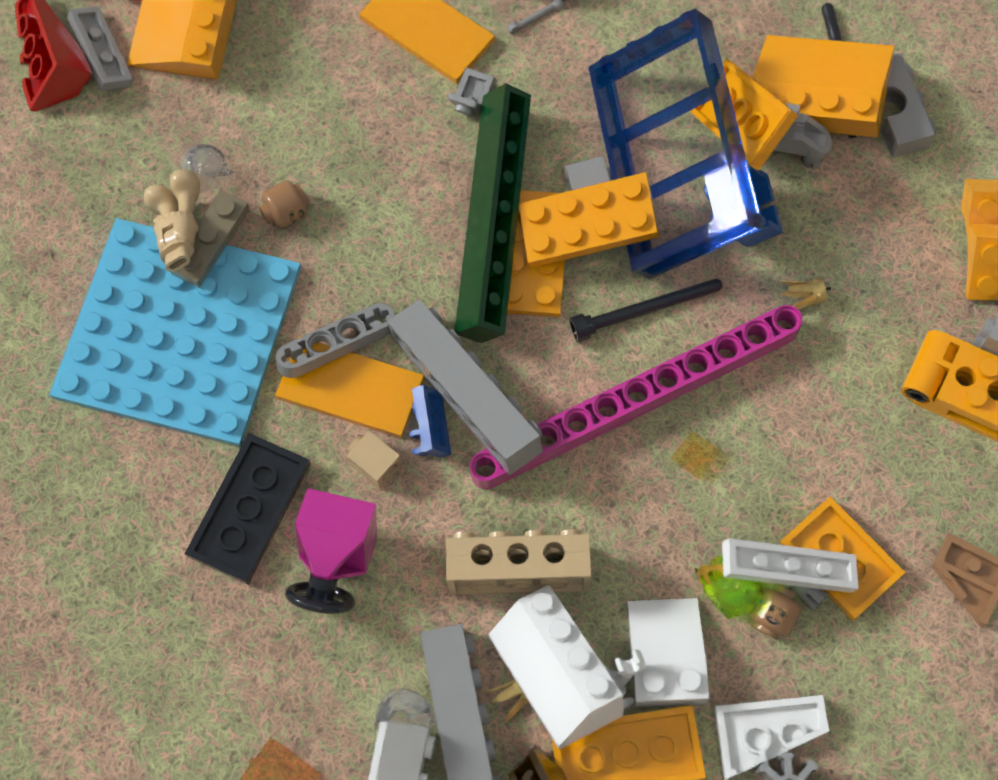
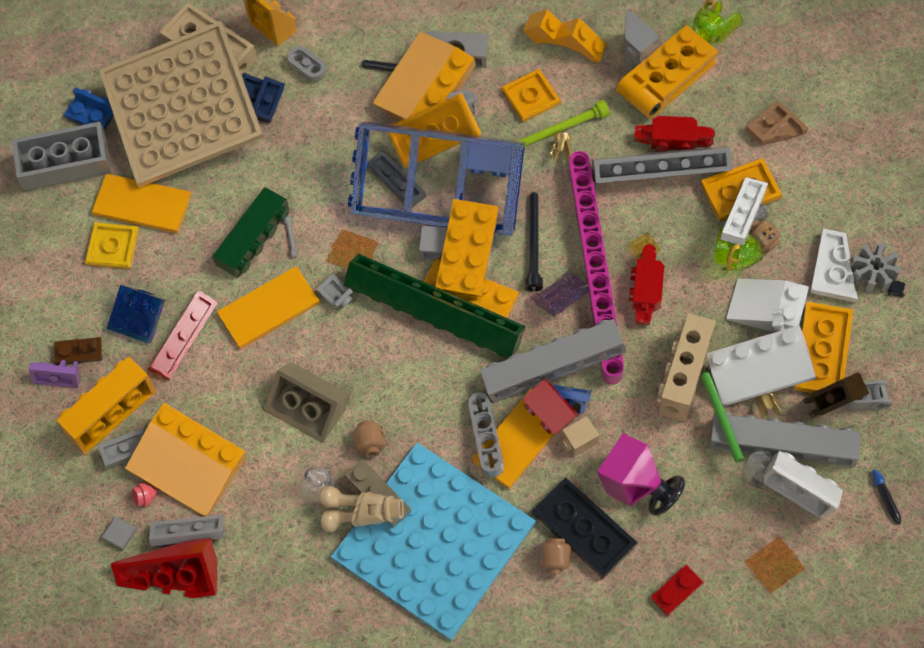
camera: 70 degrees left, 5 degrees down
(194, 481) = (554, 555): none -> medium nougat head
(199, 657) = (677, 590): none -> red plate
(312, 114) = (306, 401): none -> dark tan slope
(393, 402) = (549, 407): none -> red brick
(456, 635) = (722, 417): none -> bright green bar
(548, 93) = (350, 245): none -> clear orange piece
(573, 365) = (561, 294): none -> clear purple plate
(632, 475) = (648, 285): none -> red hinge
(678, 85) = (393, 177): none -> dark grey tile
(829, 433) = (661, 164): none -> light grey brick
(872, 228) = (531, 95): none -> light orange tile
(883, 322) = (599, 110): none -> lime piece
(891, 436) = (674, 134): none -> red hinge

